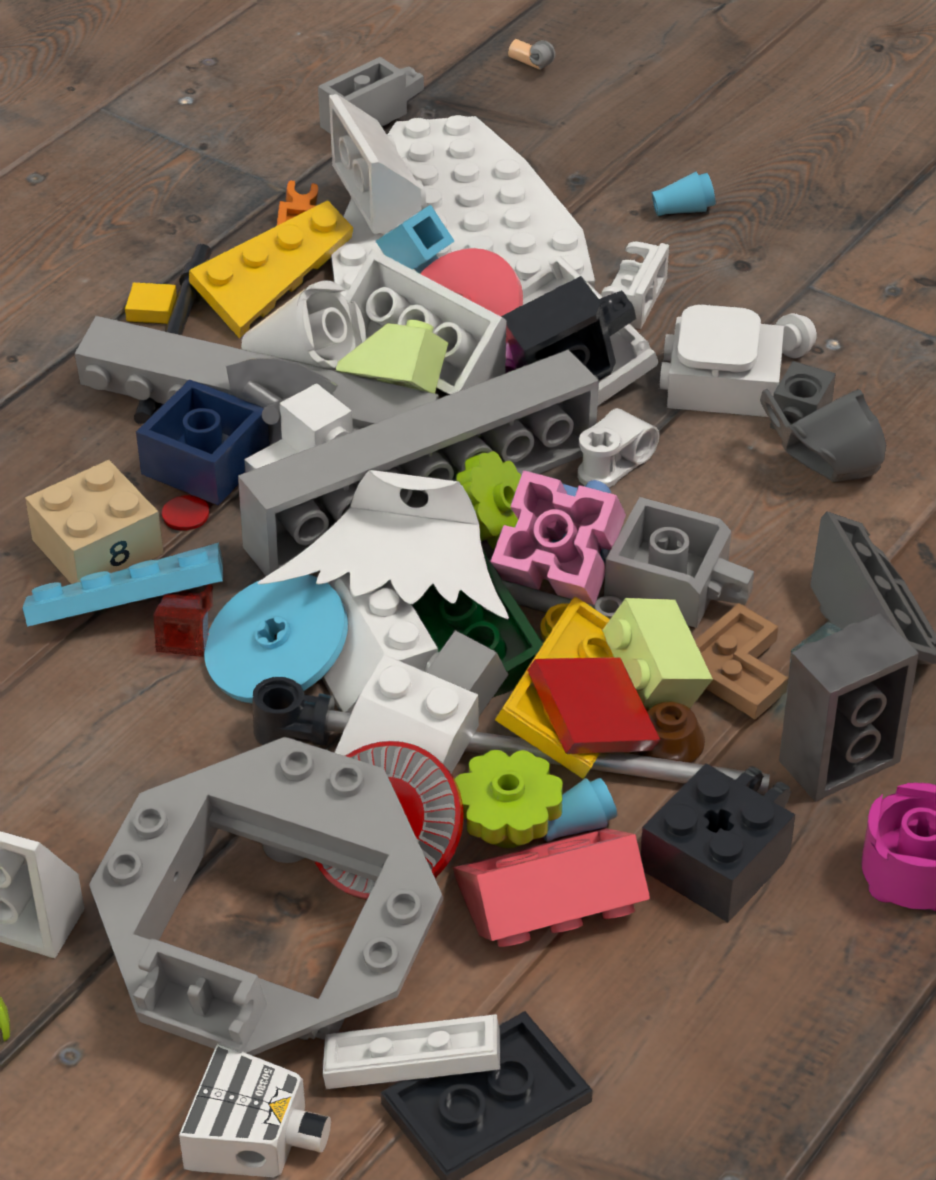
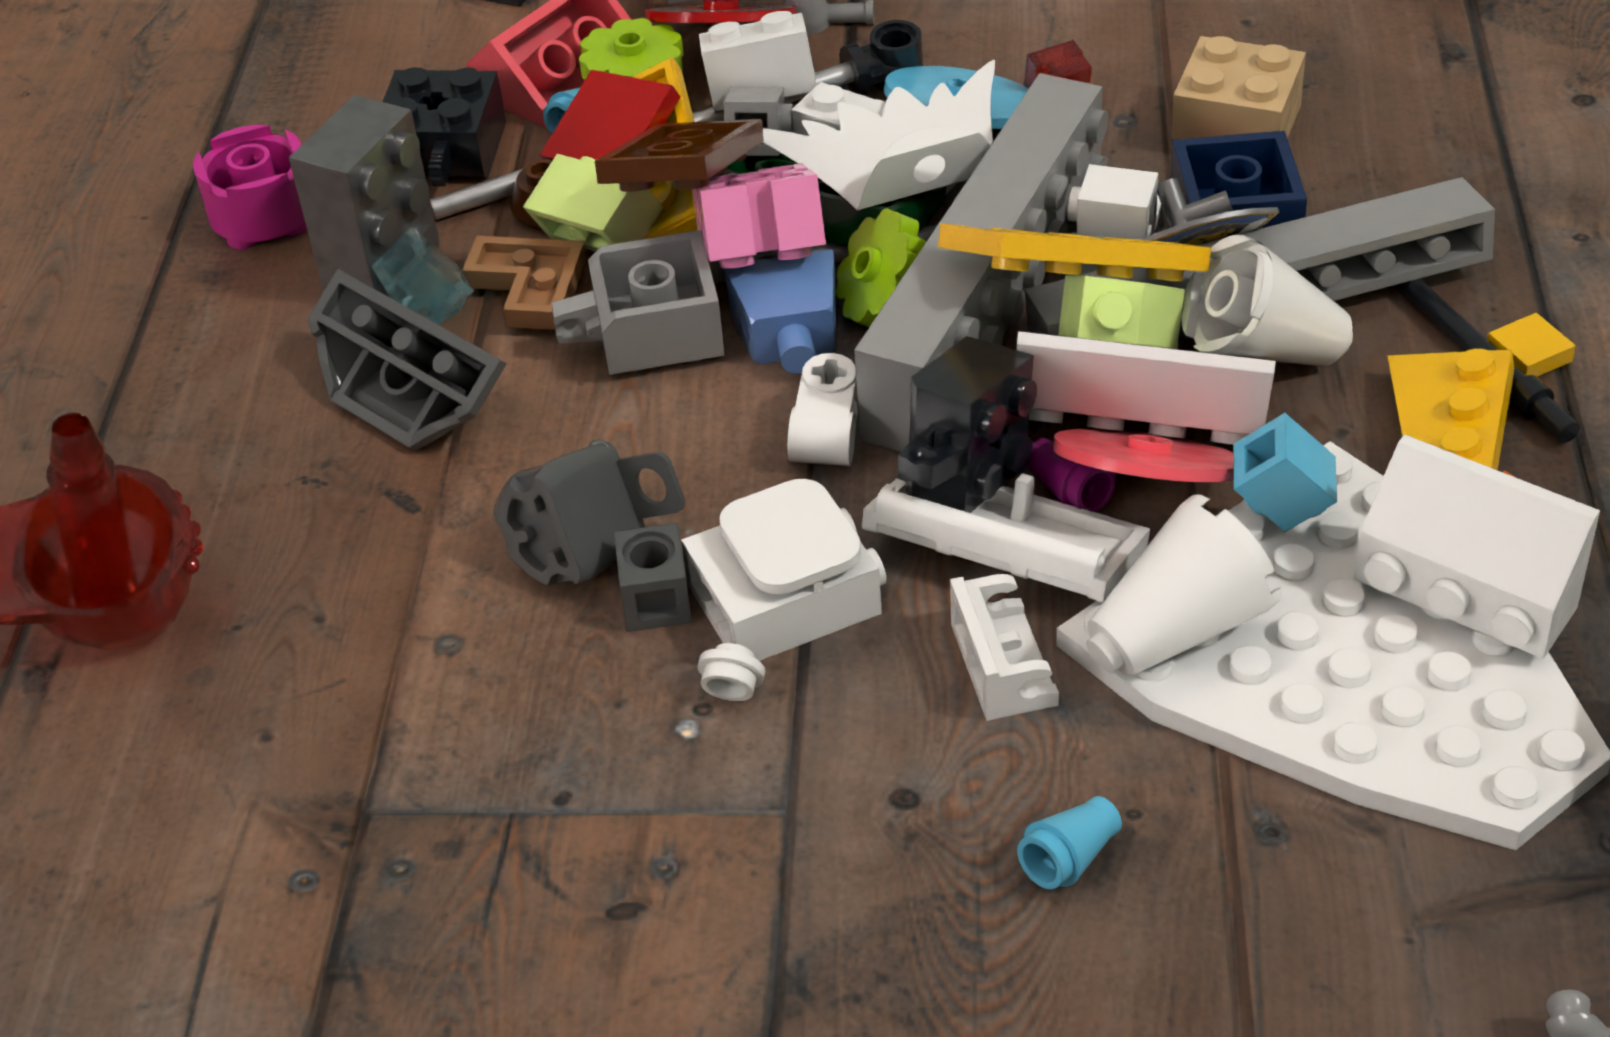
camera: 150 degrees right, 0 degrees up
(125, 586) = (1140, 76): medium azure wing -> none
(419, 354) = (1066, 252): none -> yellow wing
(539, 214) = (1182, 590): none -> white cone
(589, 568) = (679, 153): none -> reddish brown plate

